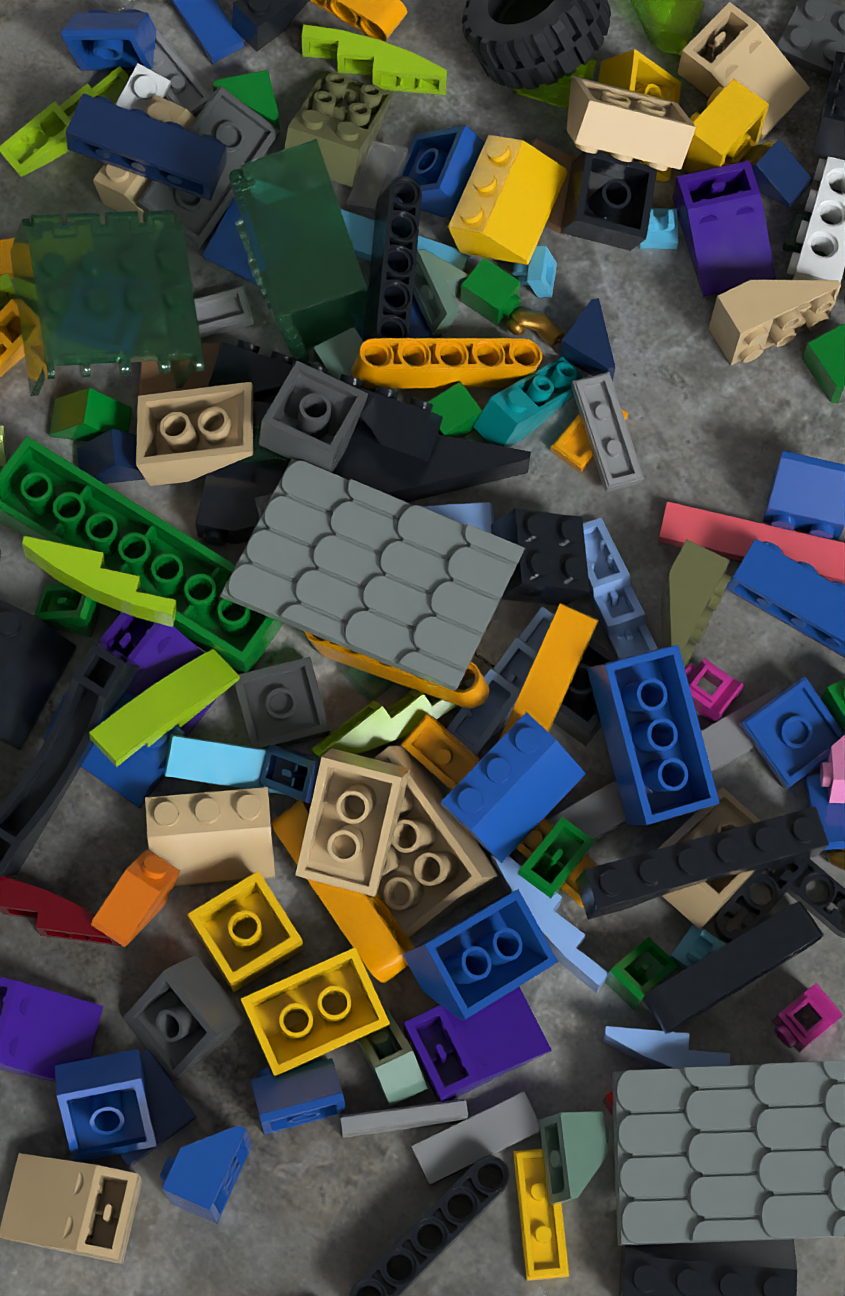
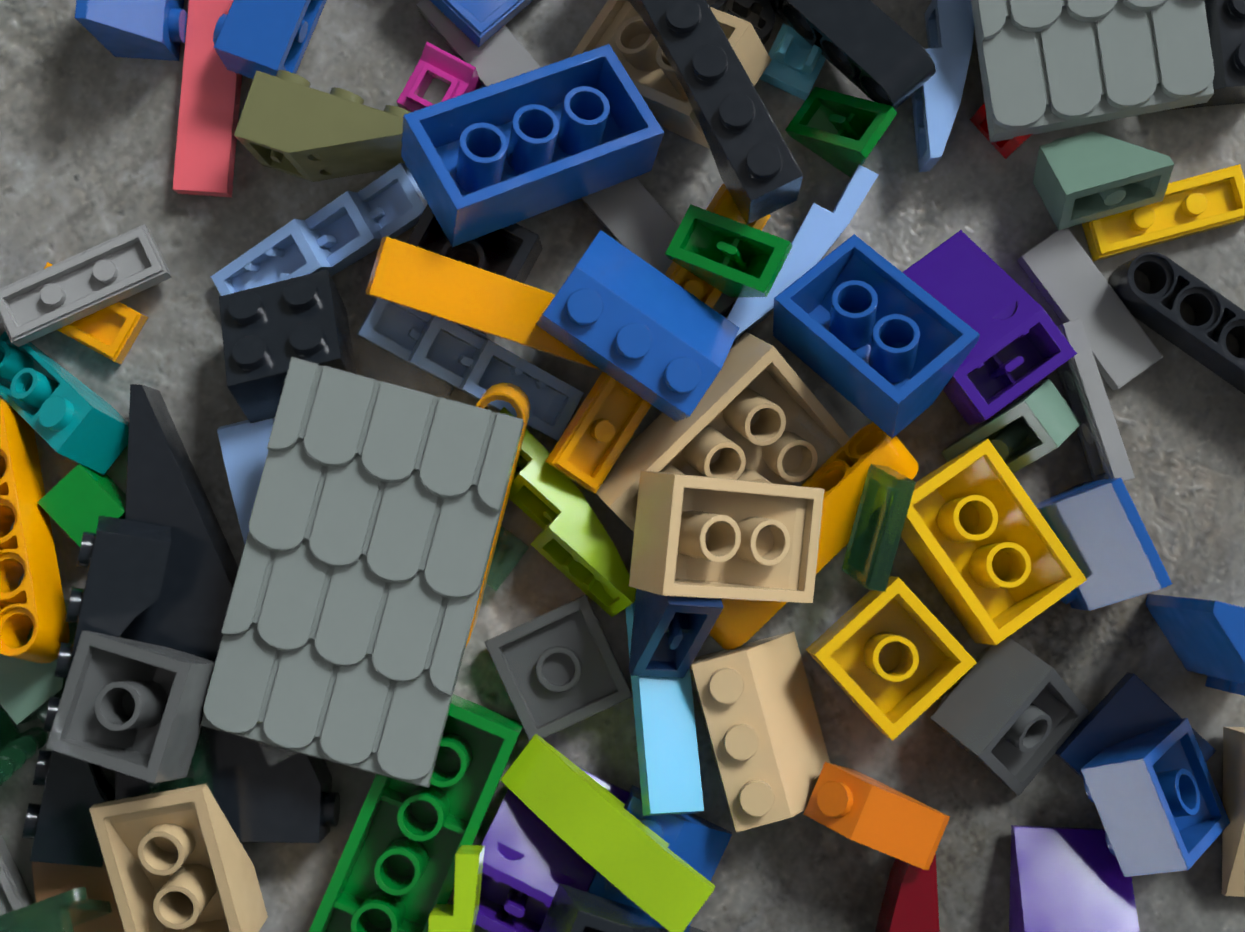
camera: 100 degrees left, 15 degrees up
(340, 932) = (878, 527): none -> clear green tile

